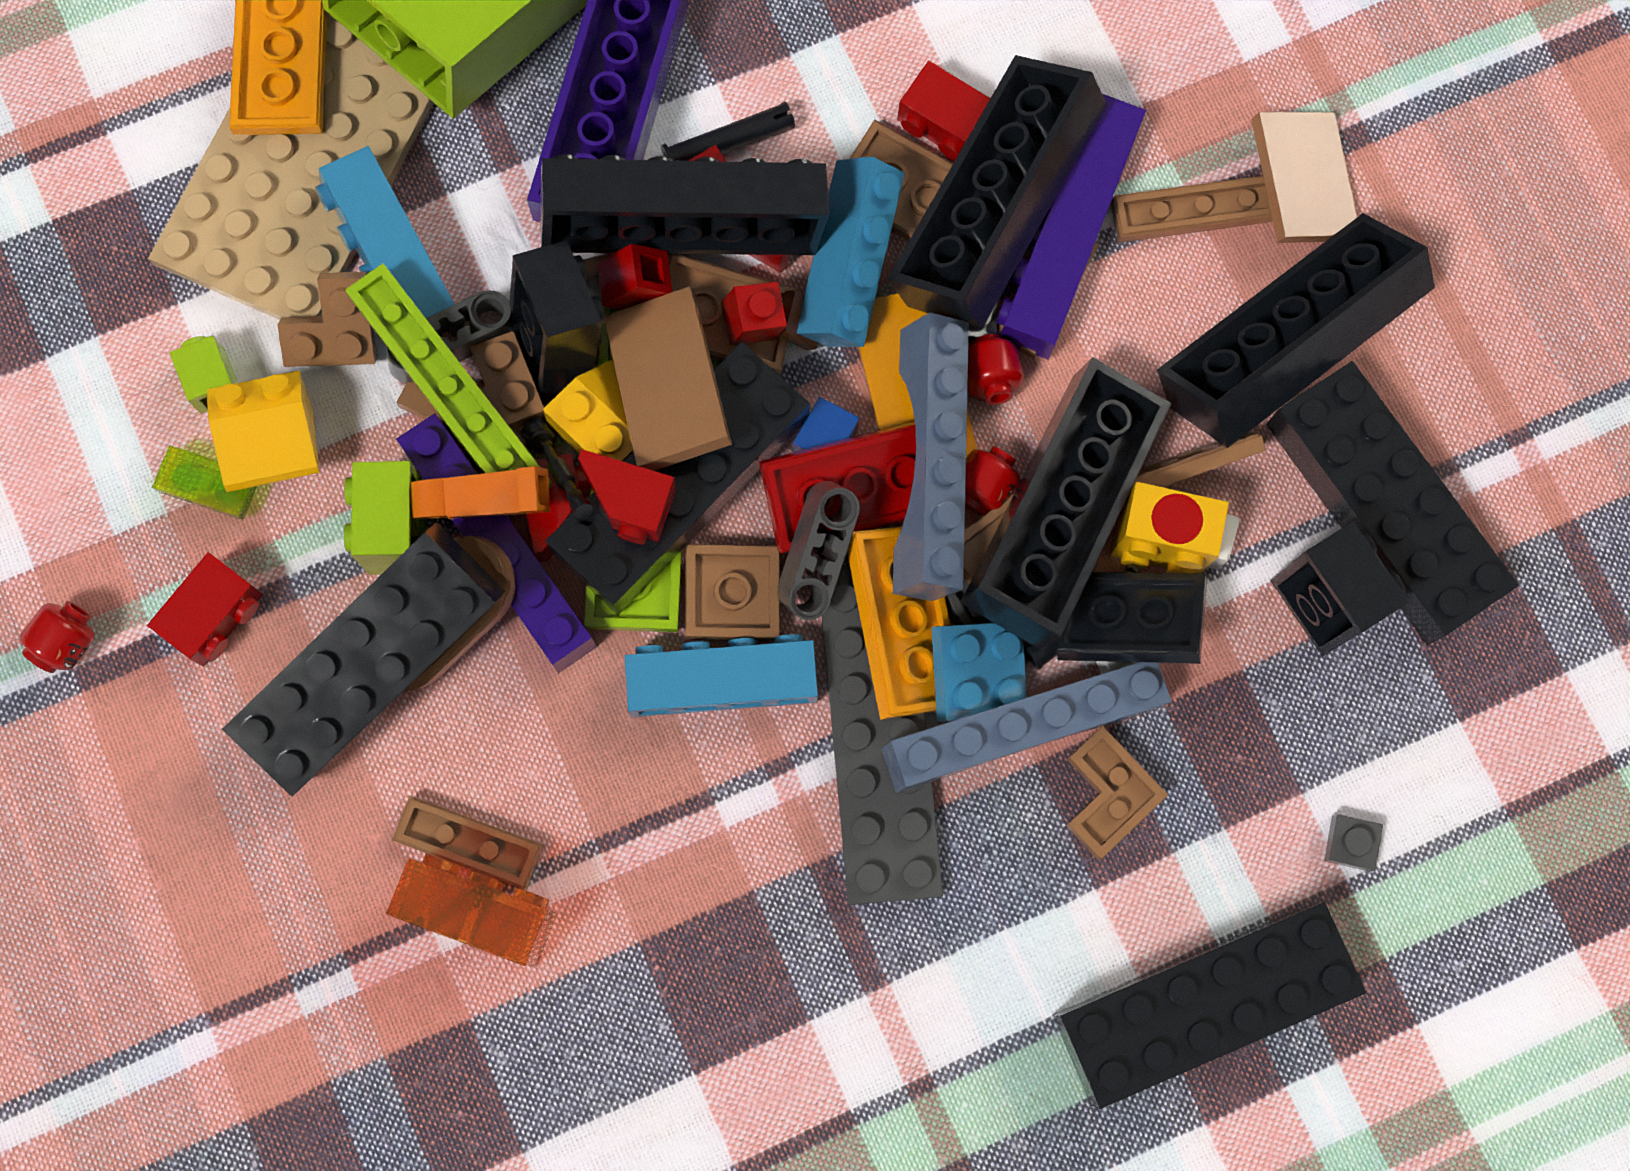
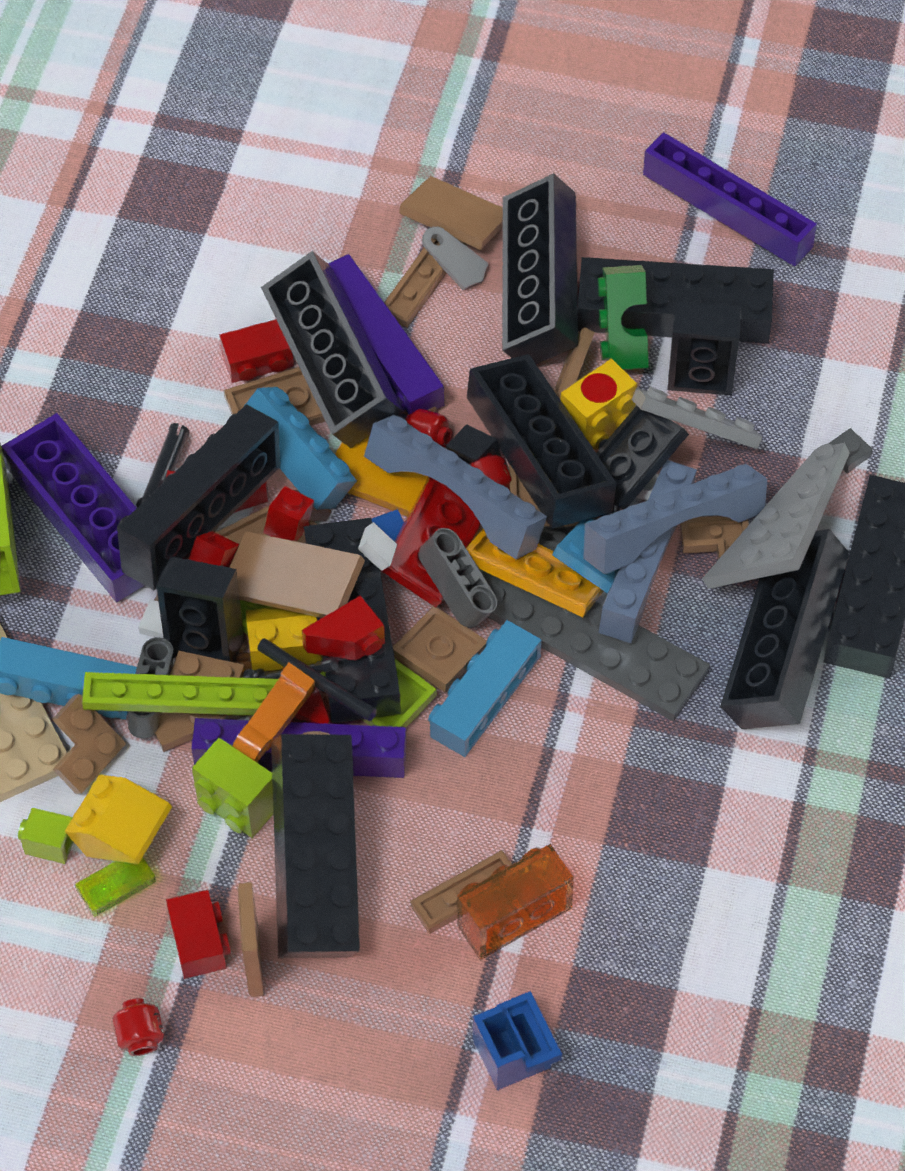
camera: 45 degrees left, 20 degrees down
(208, 678) = (250, 939): none -> medium nougat tile
(313, 1036) = (514, 1040): none -> blue plate
(554, 507) = (321, 682): none -> black bar
(771, 440) = (377, 546): none -> white tile
(1004, 698) = (622, 536): none -> sand blue arch
(1006, 433) = (473, 444): none -> black panel
(1042, 955) = (785, 638): none -> black brick
(1160, 860) = (786, 525): none -> light grey wing
(1238, 650) = (685, 412): none -> light grey plate
(1244, 224) = (455, 258): none -> light grey piece
(1331, 446) = (621, 289): none -> green arch
(1580, 460) = (729, 199): none -> dark purple brick

